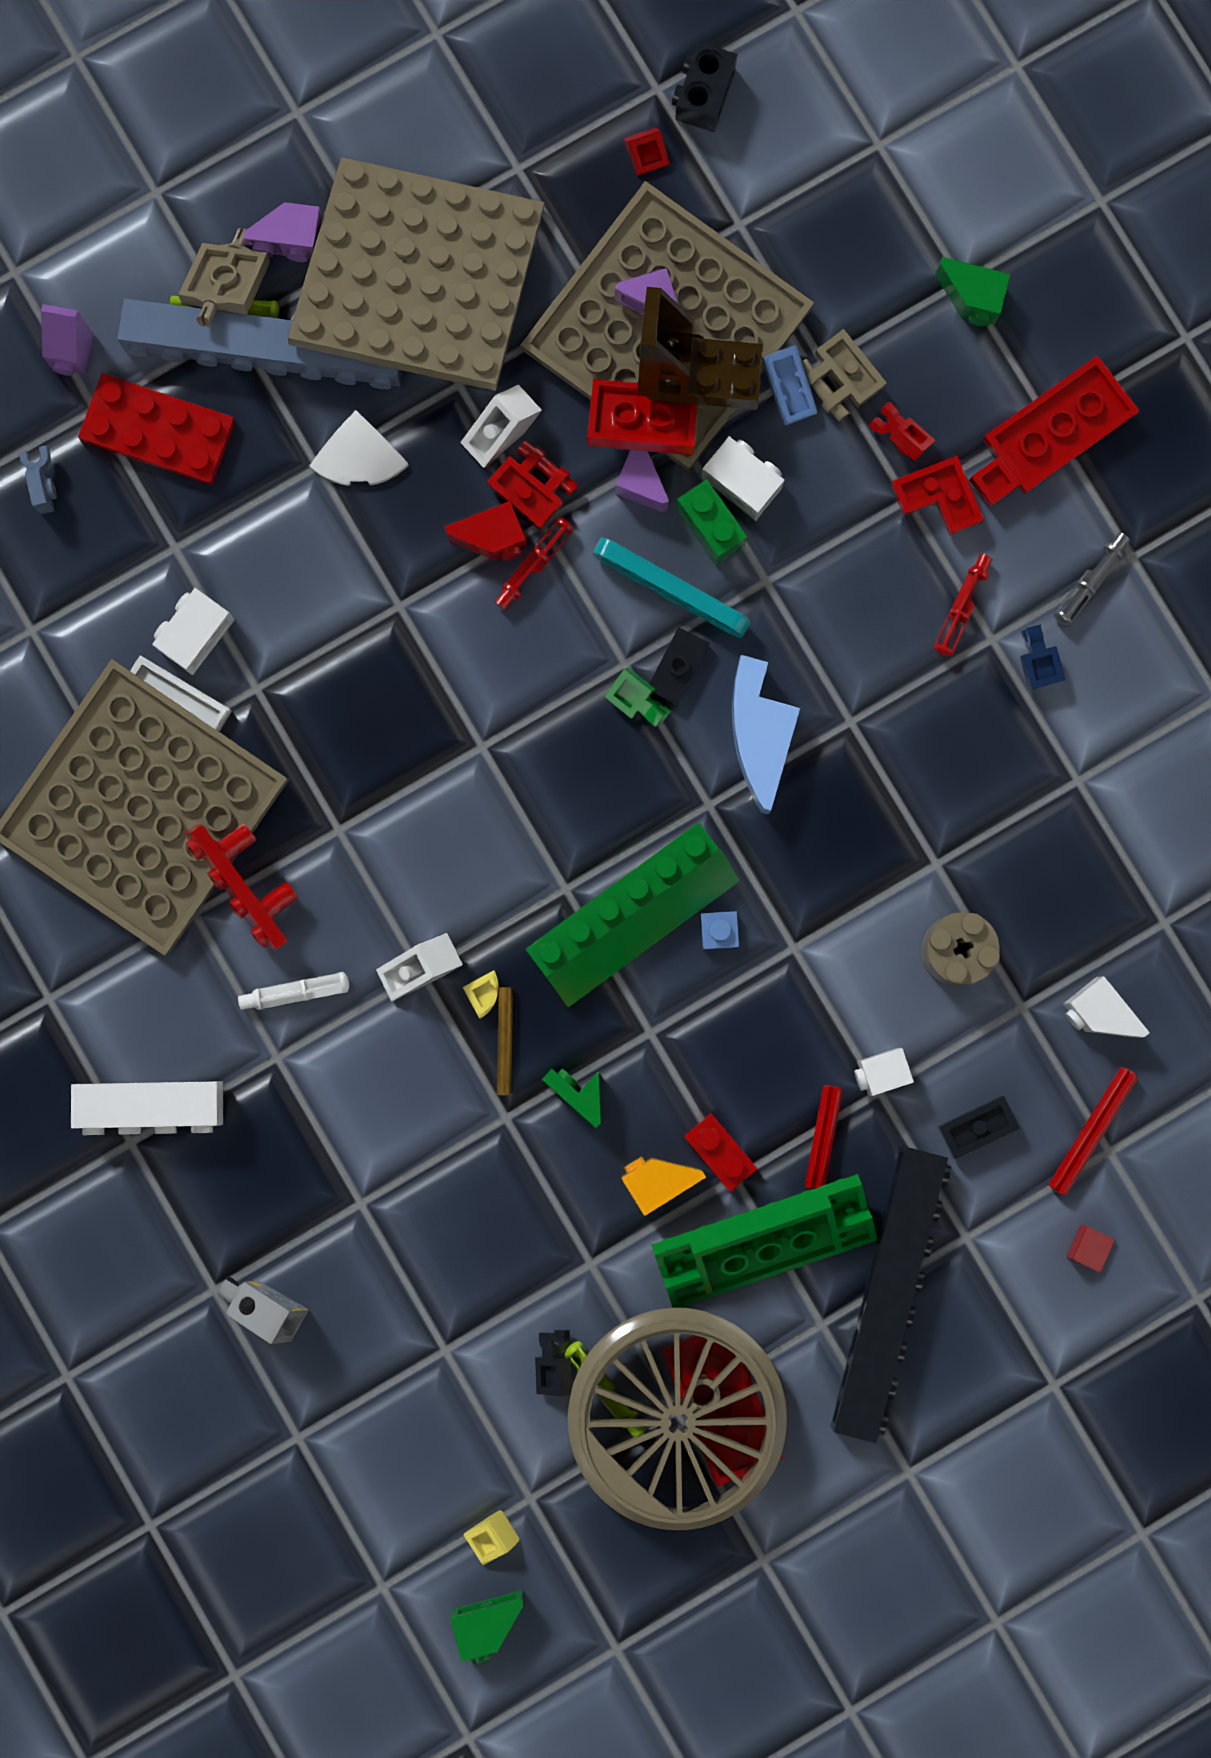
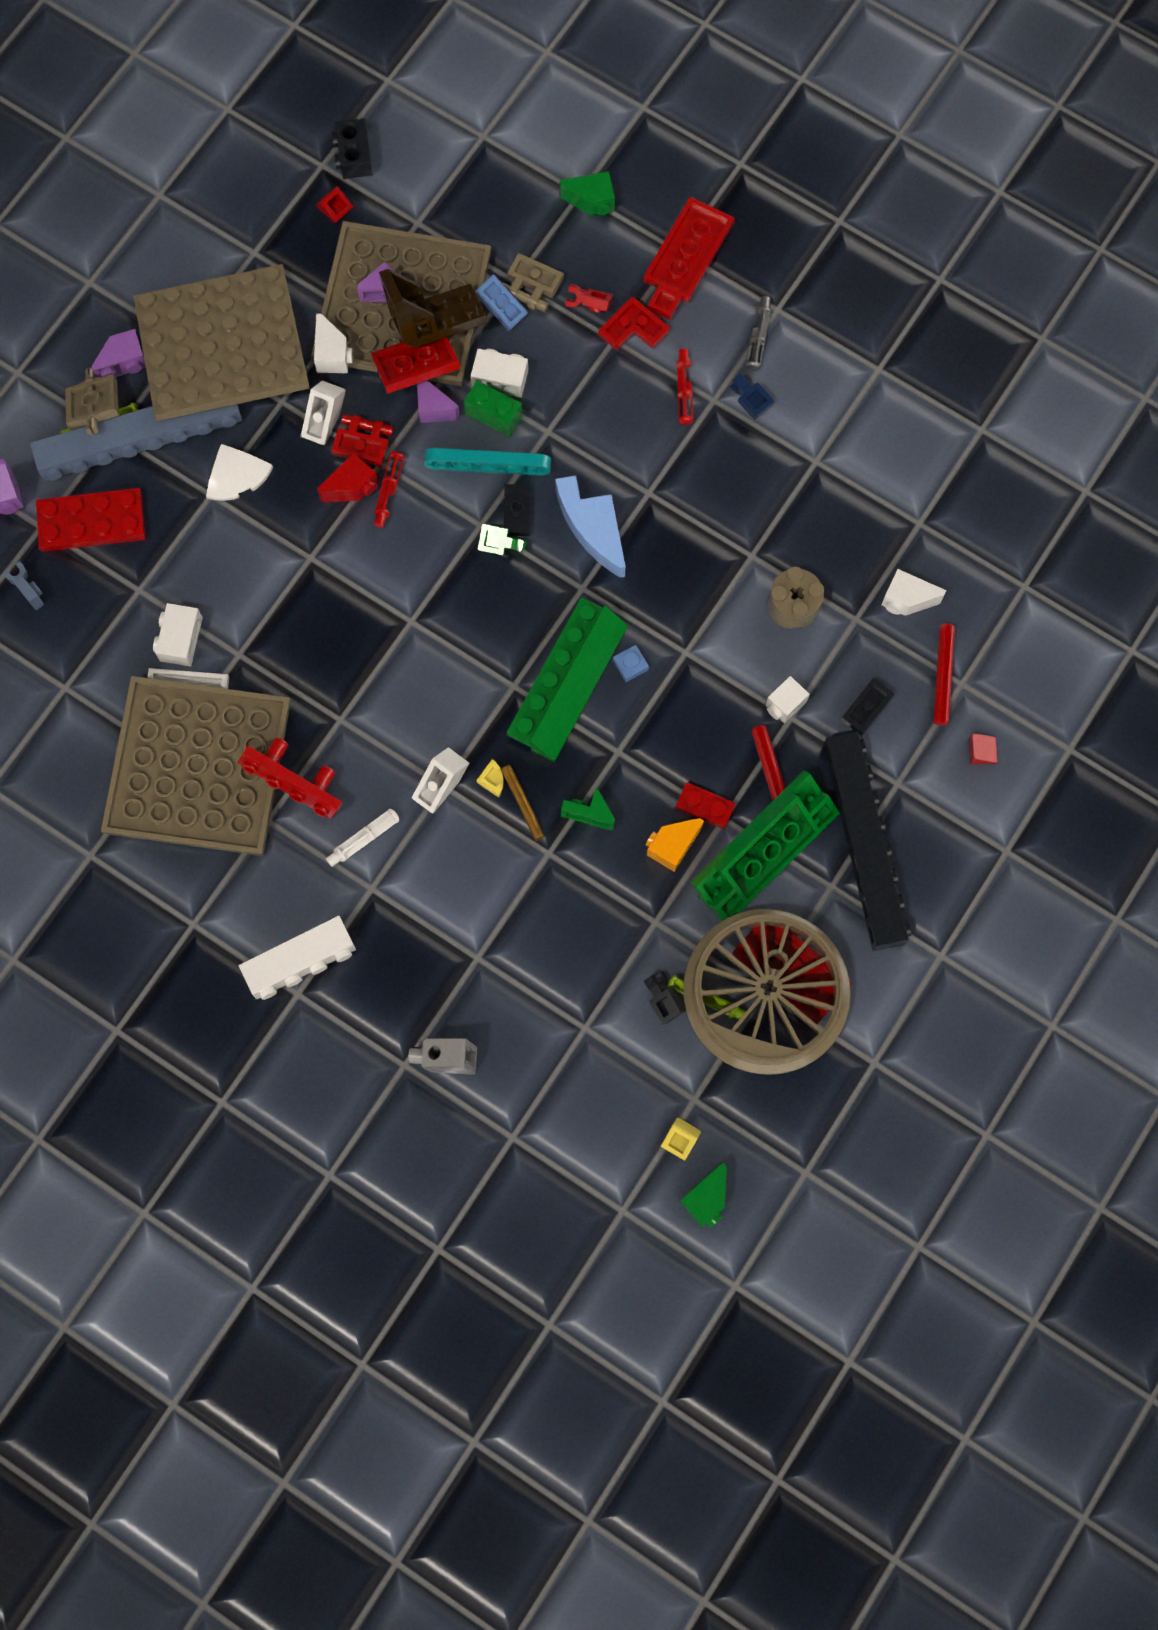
camera: 25 degrees left, 10 degrees down
(547, 349) = (331, 348): none -> white slope

